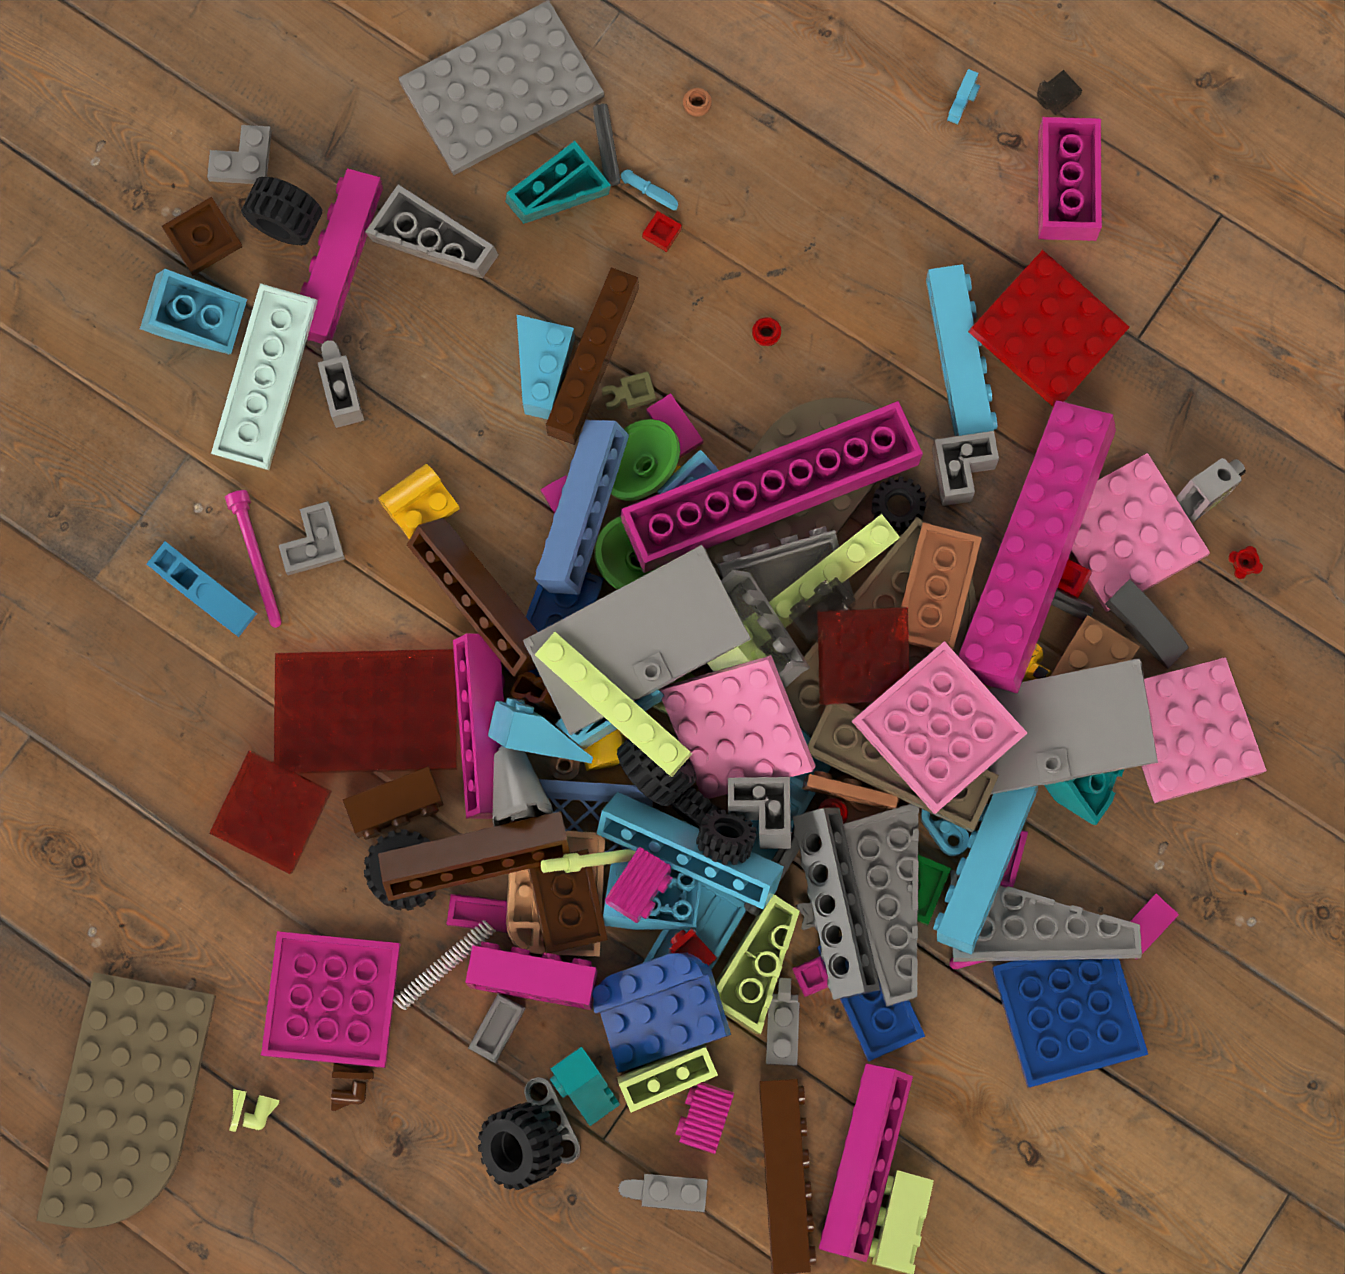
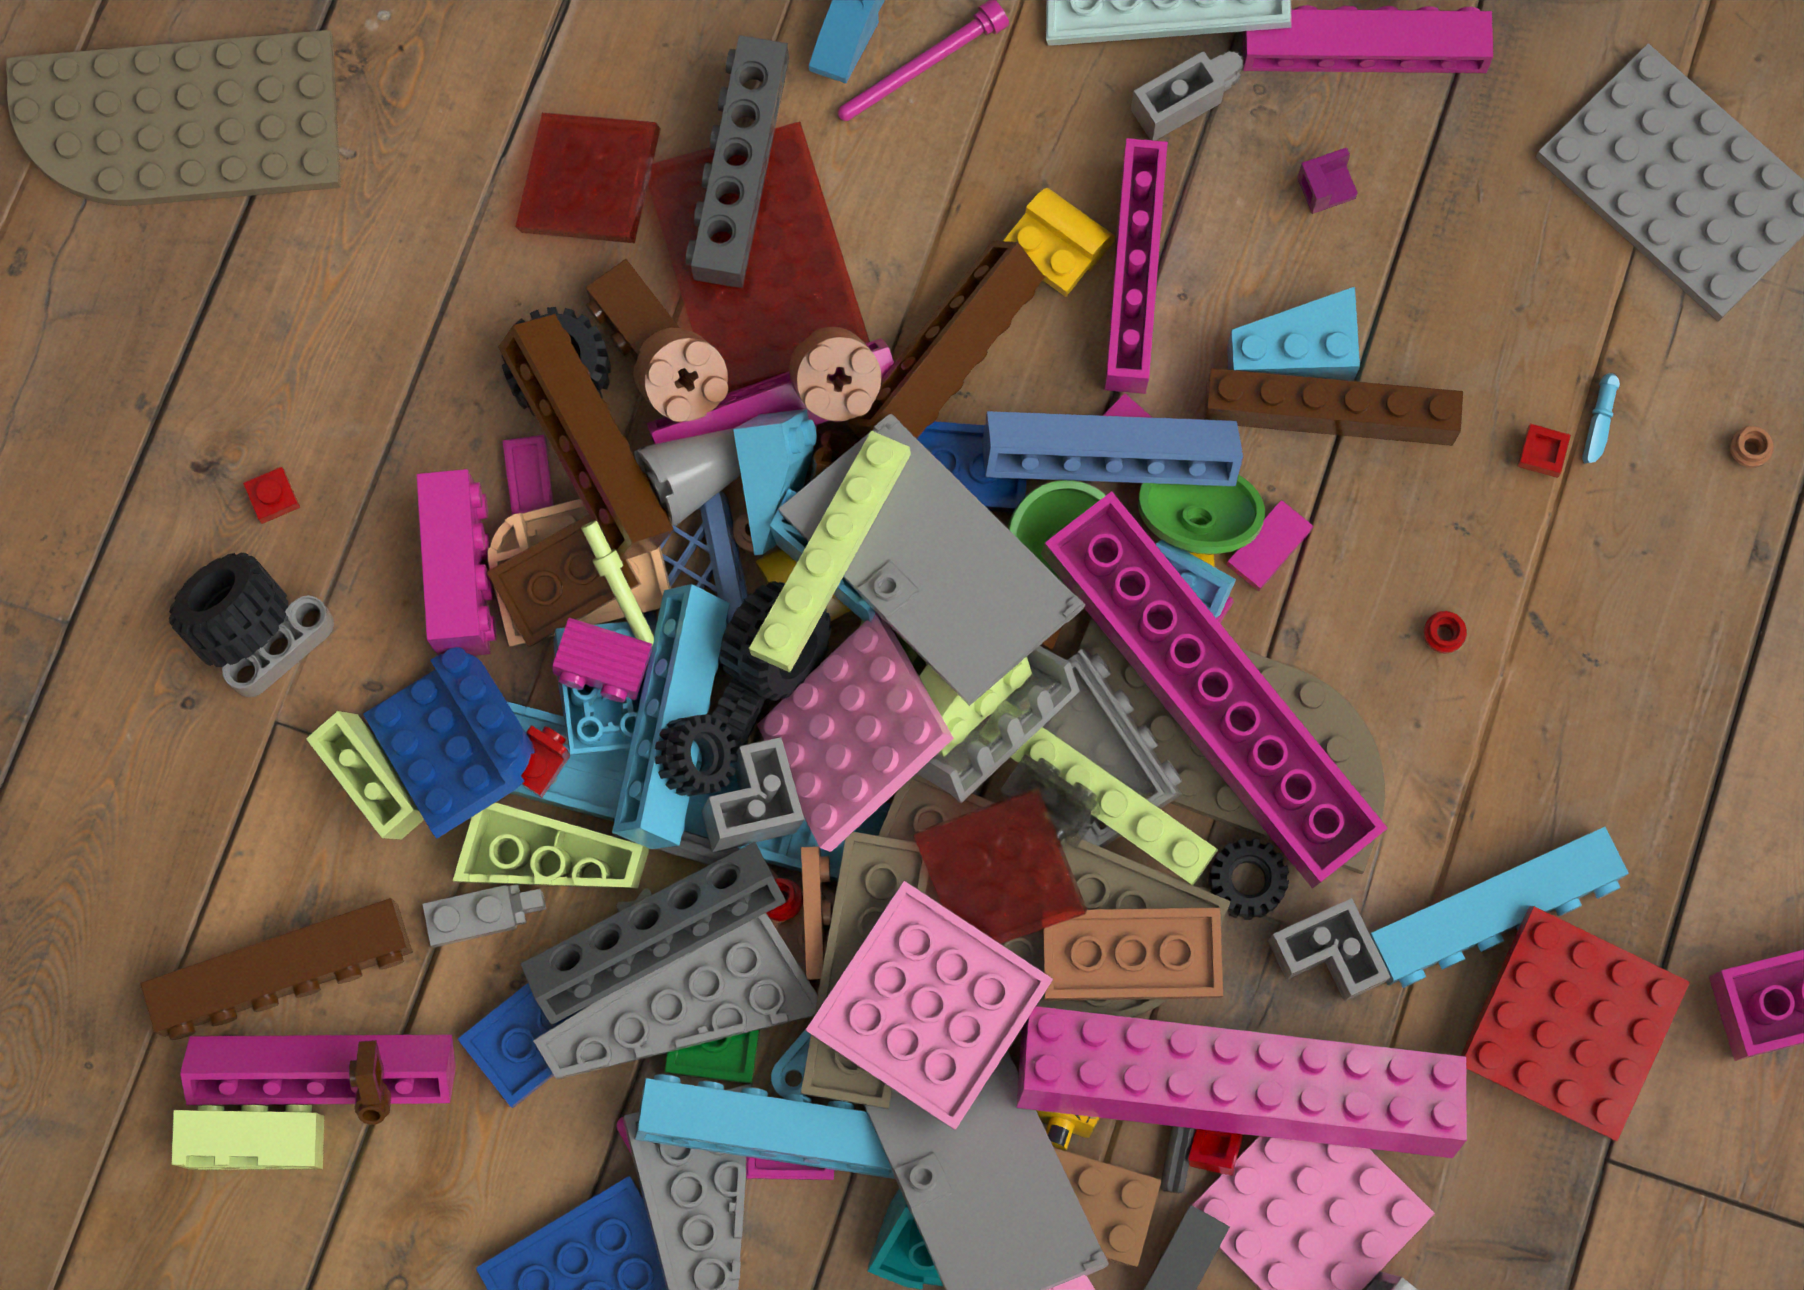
camera: 75 degrees right, 0 degrees up
(229, 661) = (728, 261): none -> dark grey brick
(254, 1121) = (209, 285): yellowish green piece -> none
(319, 547) = (963, 136): light grey plate -> none
(331, 999) = (367, 326): dark pink plate -> none
(357, 1095) = (278, 389): reddish brown piece -> none
(425, 232) = (1438, 135): light grey wedge -> none
(431, 313) = (1327, 181): none -> magenta panel
(436, 1100) = (271, 495): none -> red plate
(438, 975) = (481, 478): white piece -> none
(444, 780) = (658, 375): none -> nougat brick
(454, 454) = (1136, 266): none -> dark pink brick
(479, 672) = (849, 393): none -> nougat brick
(496, 1028) = (381, 544): light grey tile -> none
(558, 185) = (1560, 290): teal wedge -> none
(584, 1085) = (327, 666): teal wedge -> none
(606, 144) = (1646, 342): dark grey axle -> none
(635, 391) = (1300, 478): olive plate -> none
(667, 1192) = (218, 819): light grey hinge -> none
(705, 1118) = (329, 842): dark pink brick -> none
(811, 976) = (552, 929): dark pink tile -> none
(898, 1124) = (367, 1074): none -> reddish brown plate

